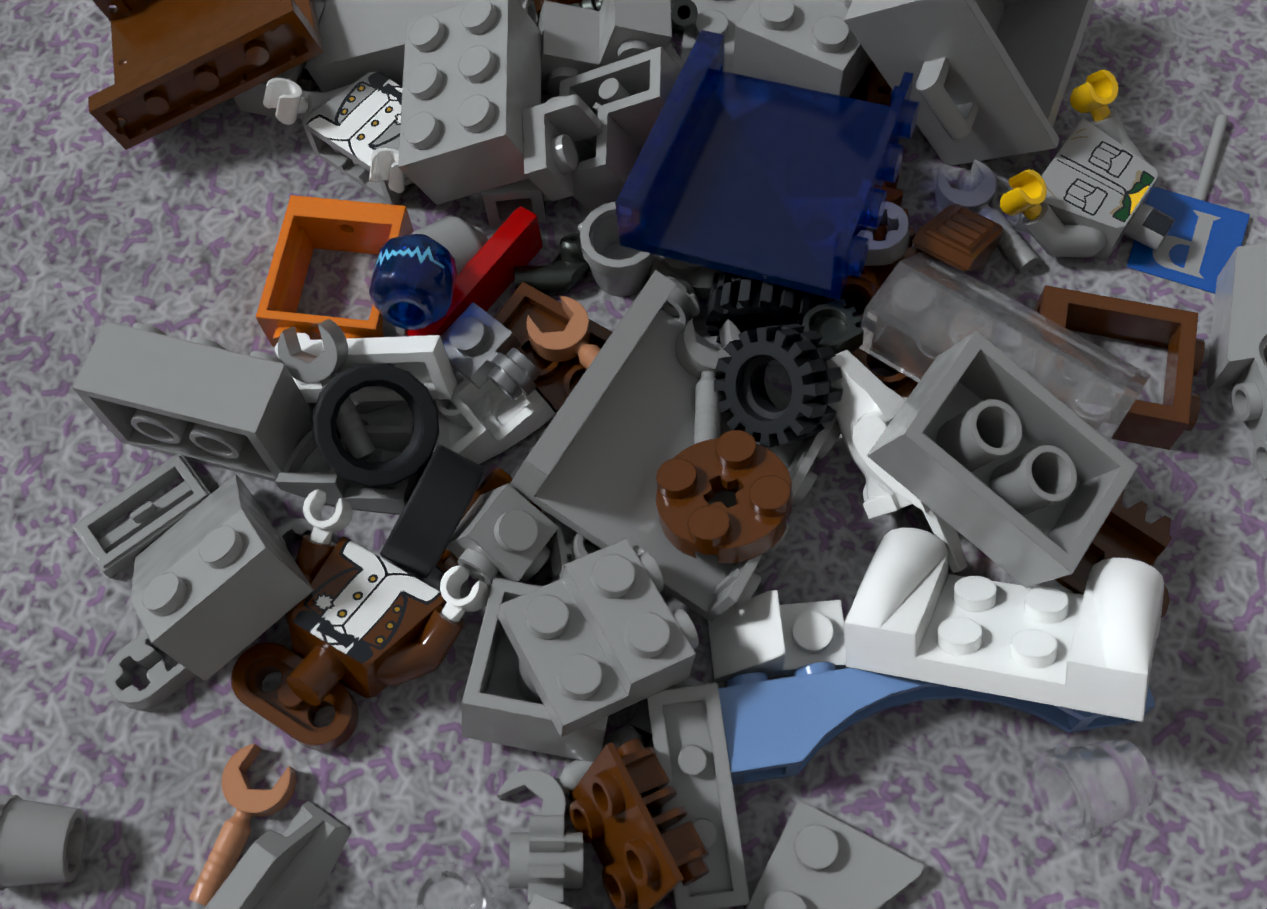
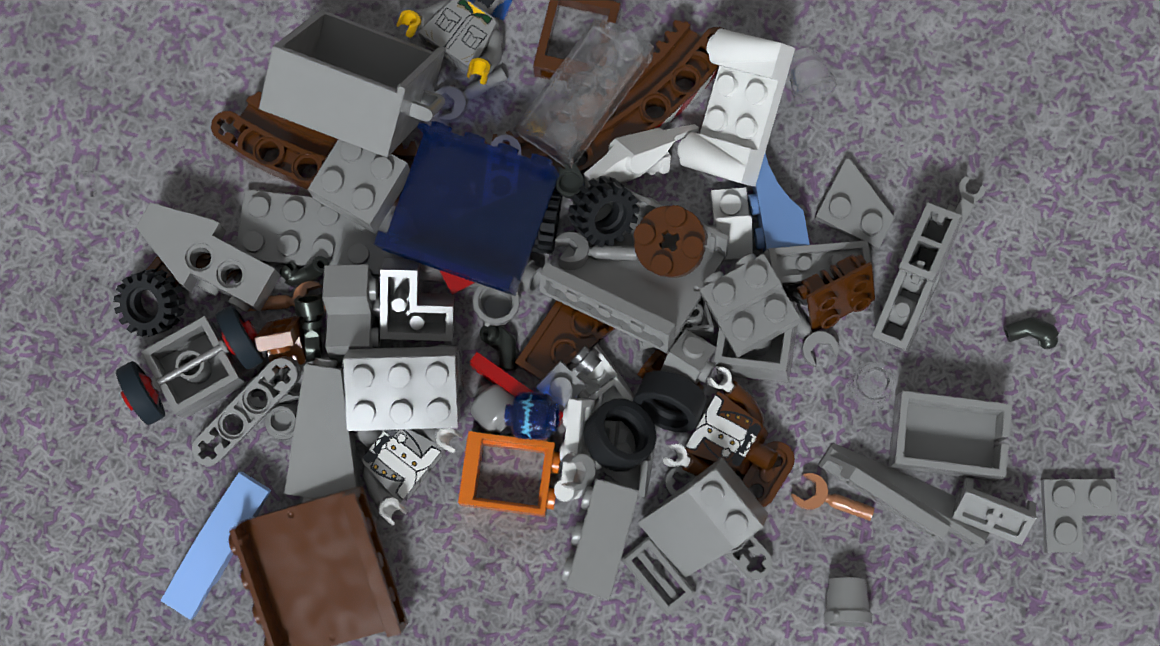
camera: 90 degrees left, 15 degrees up
(546, 858) = (850, 337): light grey gear -> none
(549, 144) = (448, 337): light grey bracket -> none
(565, 344) = (560, 329): nougat piece -> none
(959, 238) = (498, 110): reddish brown slope -> none
(1004, 461) = (660, 98): light grey brick -> none

